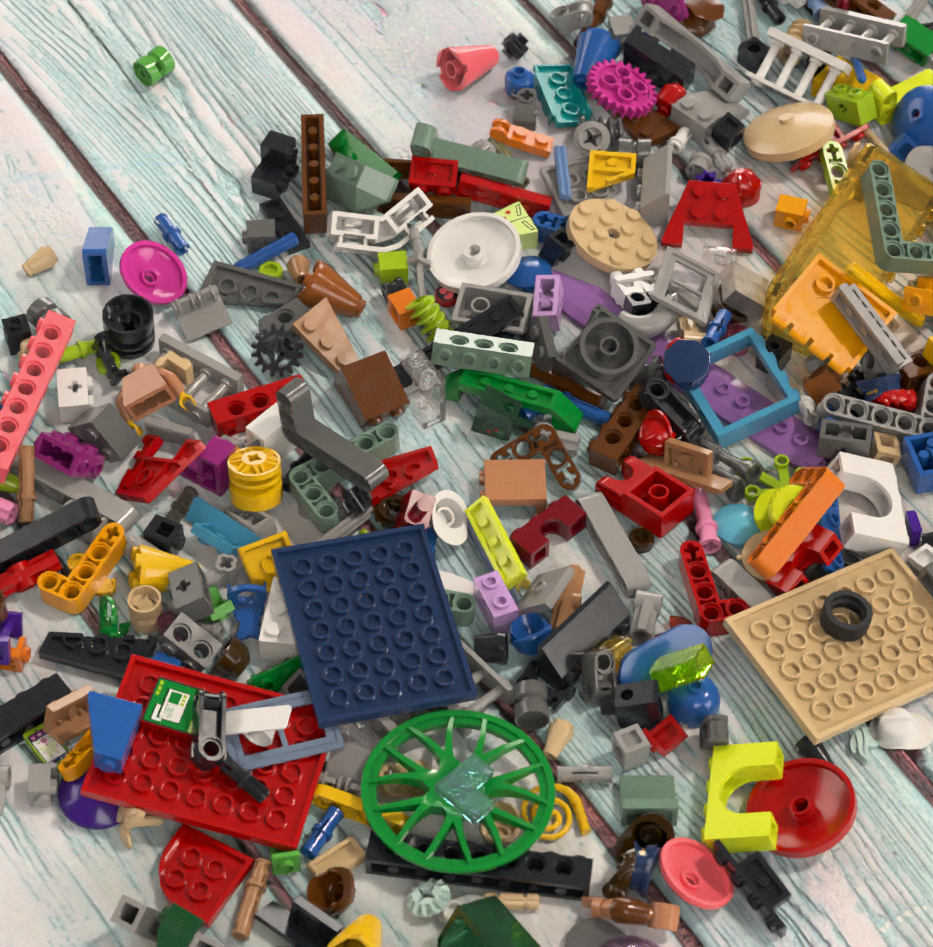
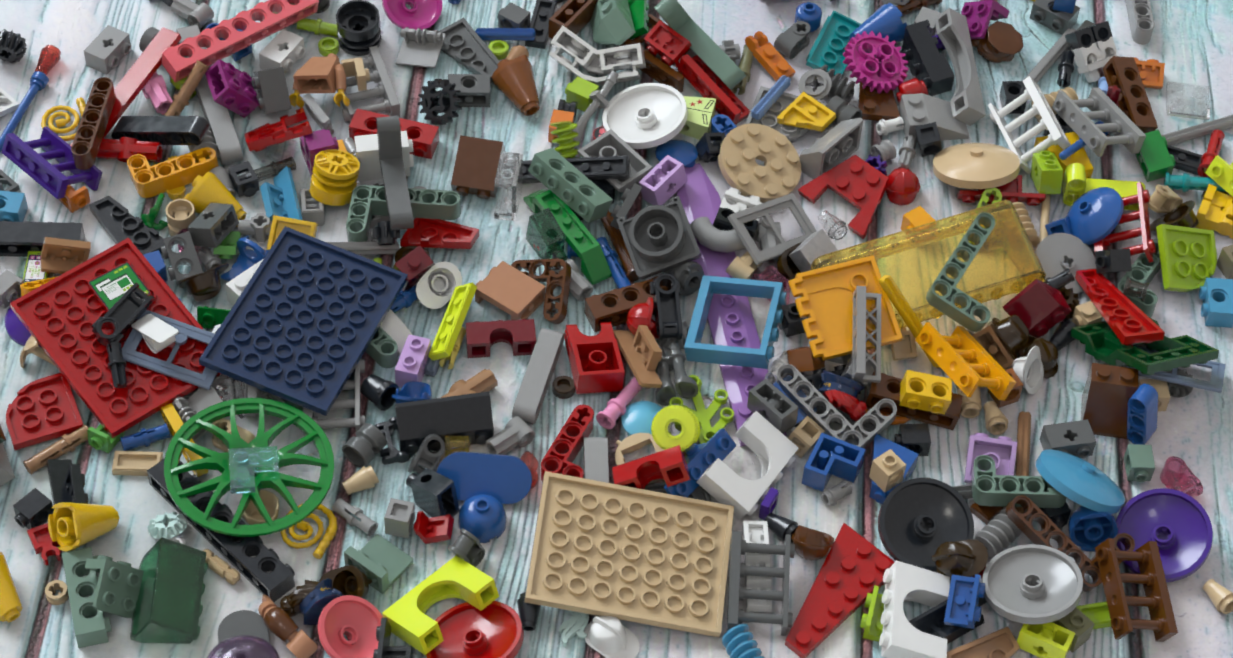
camera: 35 degrees right, 0 degrees up
(103, 352) = (325, 37): black piece -> none
(112, 730) = (60, 277): blue slope -> none
(325, 336) = (484, 110): wing -> none
(332, 890) = (107, 478): reddish brown piece -> none
(545, 591) = (451, 375): light grey plate -> none
(682, 667) = (481, 485): clear neon green brick -> none
(686, 363) = (704, 278): dark blue piece -> none
(717, 328) = (762, 270): blue pin -> none
(818, 494) = (664, 437): orange beam -> none
(838, 629) = (643, 512): black tyre -> none

